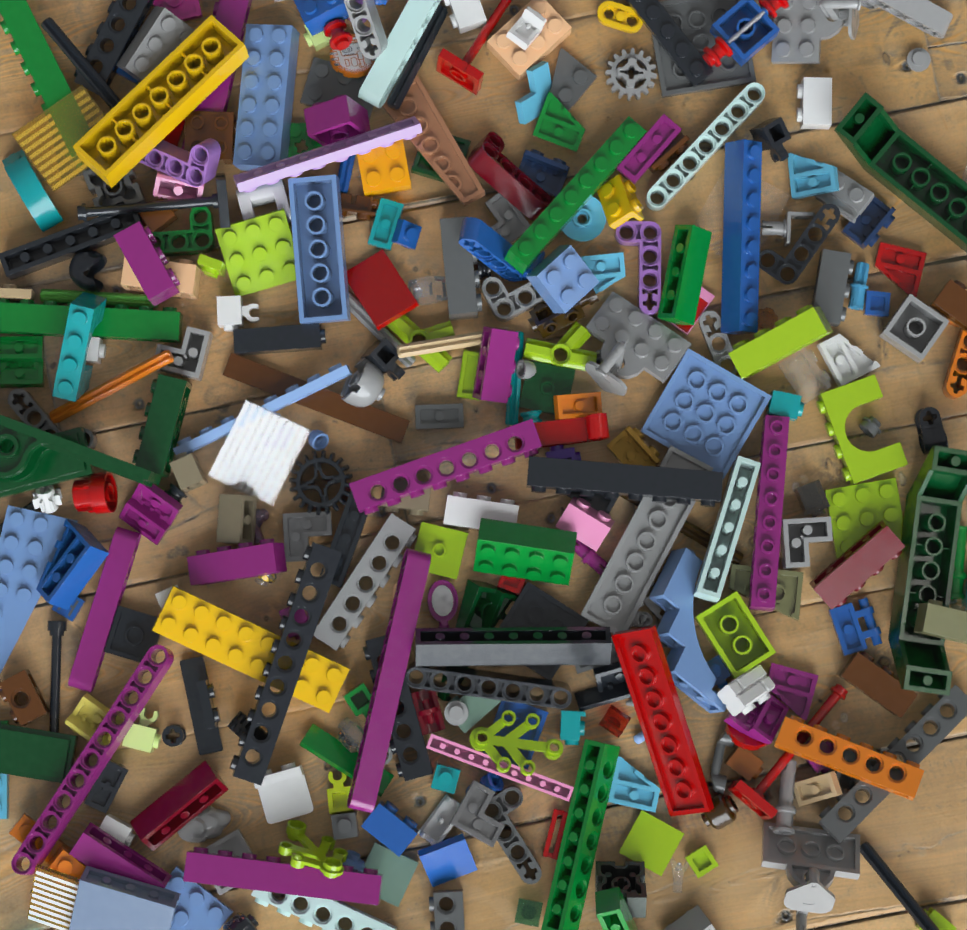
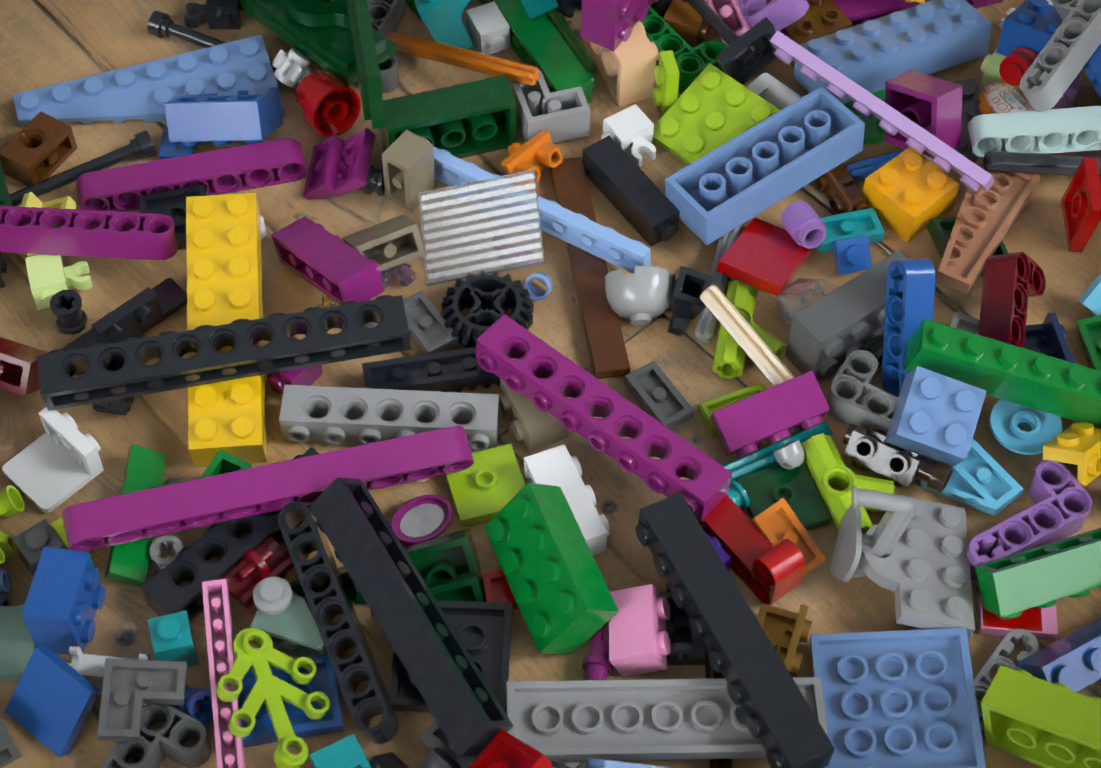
camera: 60 degrees right, 30 degrees down
(215, 389) = (534, 154): none -> orange hips
(372, 252) = (803, 224): none -> medium lavender brick

